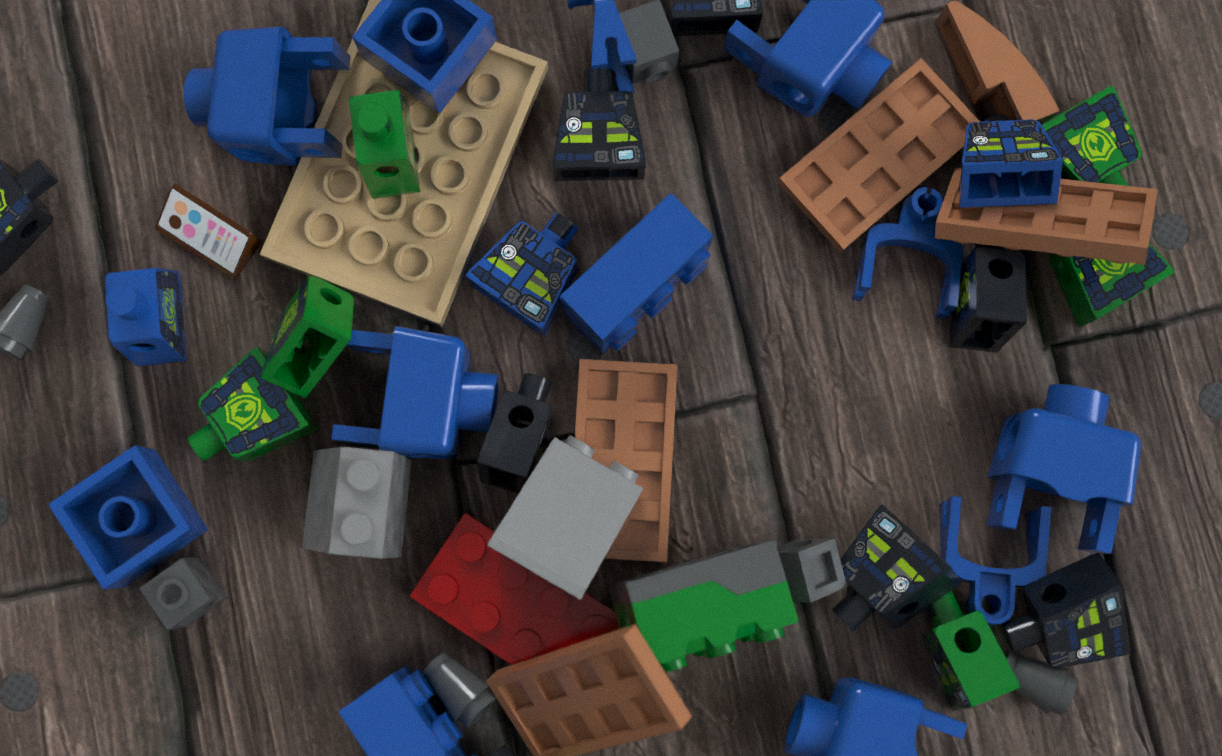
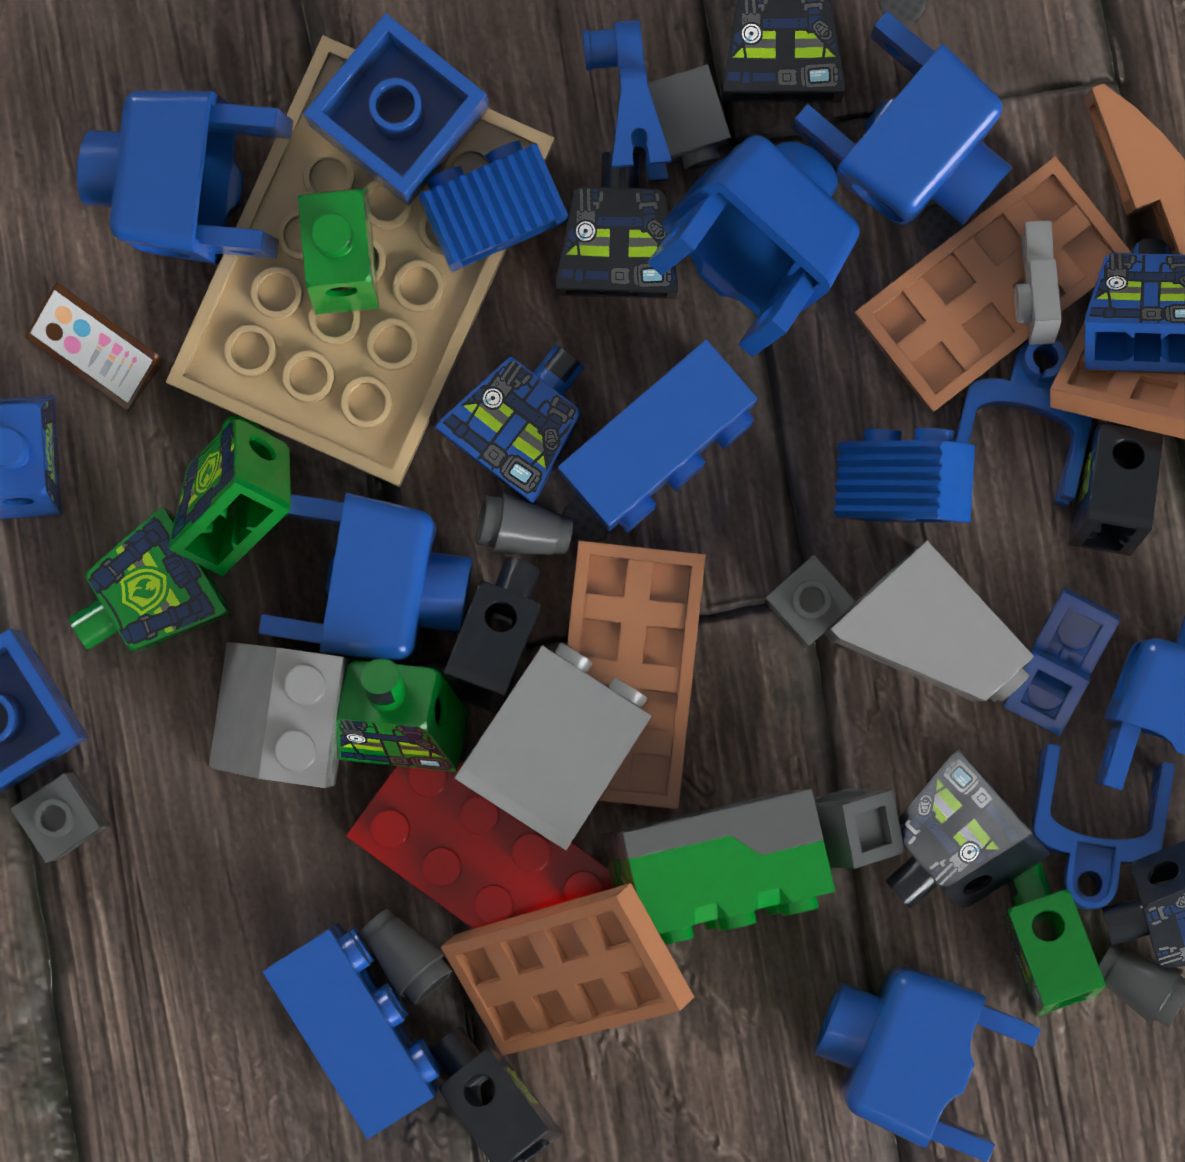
camera: 10 degrees right, 5 degrees up
(438, 499) = (393, 713): none -> green torso
(502, 107) = (492, 205): none -> blue brick
(535, 351) = (521, 527): none -> dark grey cone
(708, 117) = (763, 233): none -> blue piece
(759, 396) = (809, 601): none -> dark grey brick
(828, 298) = (905, 479): none -> blue brick
(860, 412) = (934, 629): none -> light grey slope
(922, 154) = (1038, 298): none -> light grey plate
(952, 434) = (1063, 660): none -> blue slope

